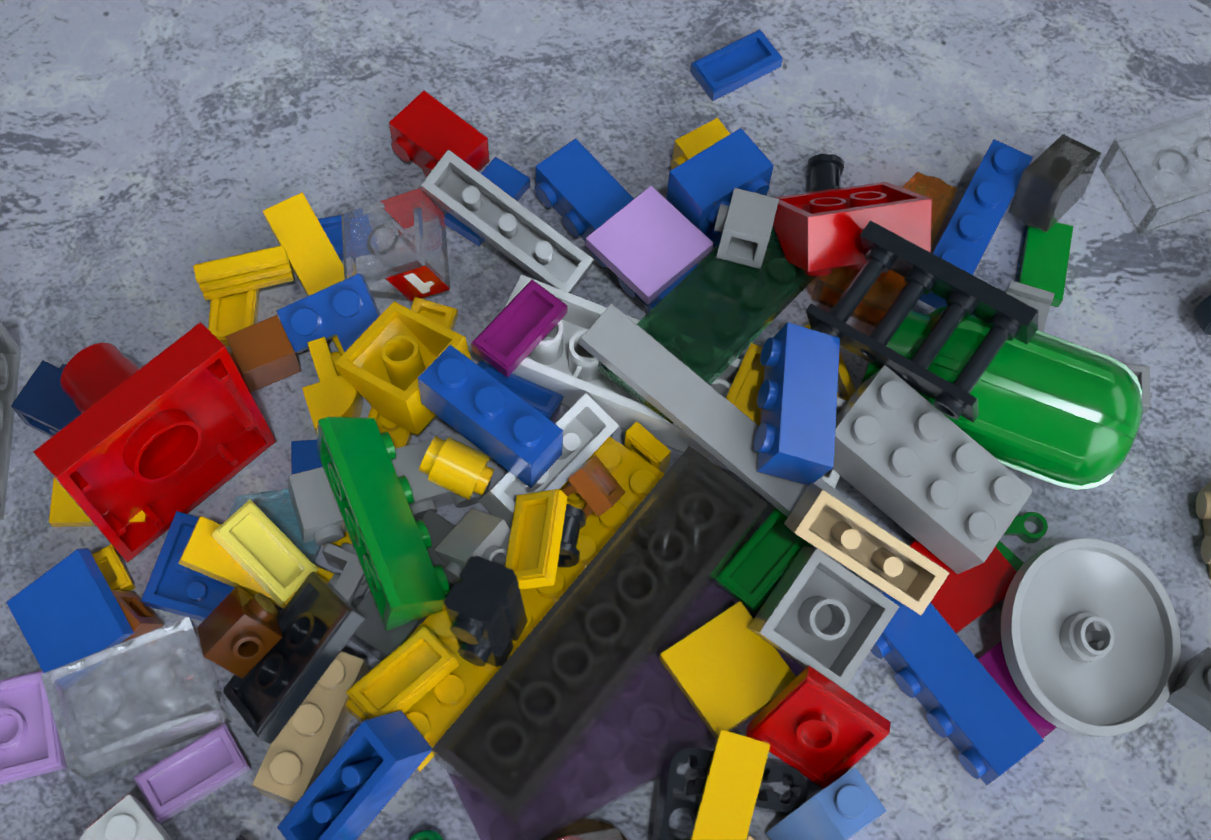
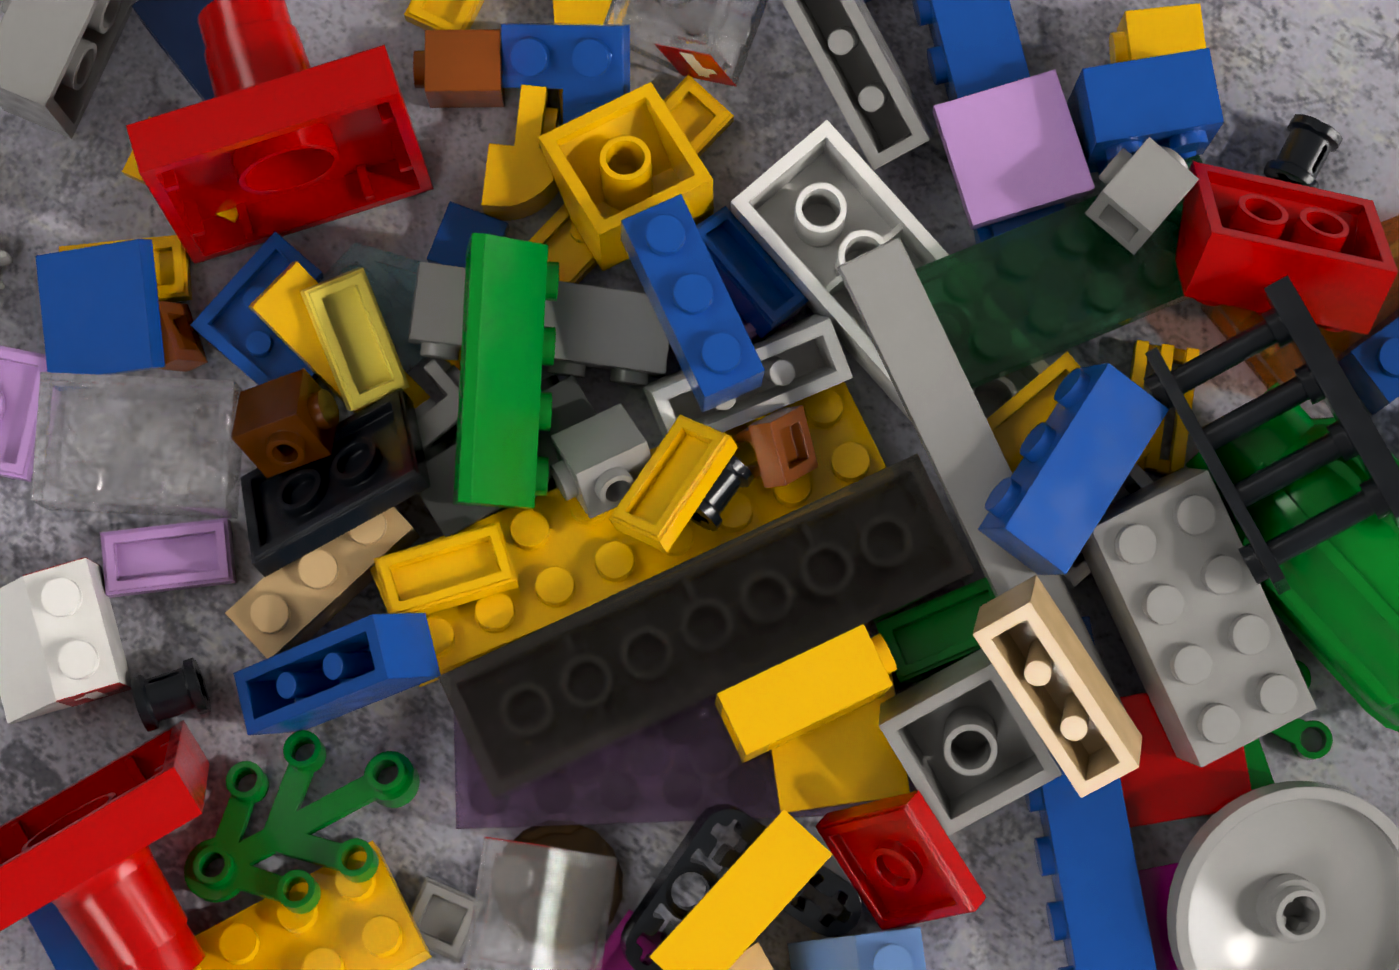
camera: 30 degrees right, 15 degrees up
(456, 467) = (625, 344): yellow brick -> none
(486, 612) = (570, 549): black brick -> none
(519, 328) = (788, 194): magenta tile -> none
(647, 447) = (878, 417): yellow tile -> none
(696, 636) = (806, 692): none -> yellow window

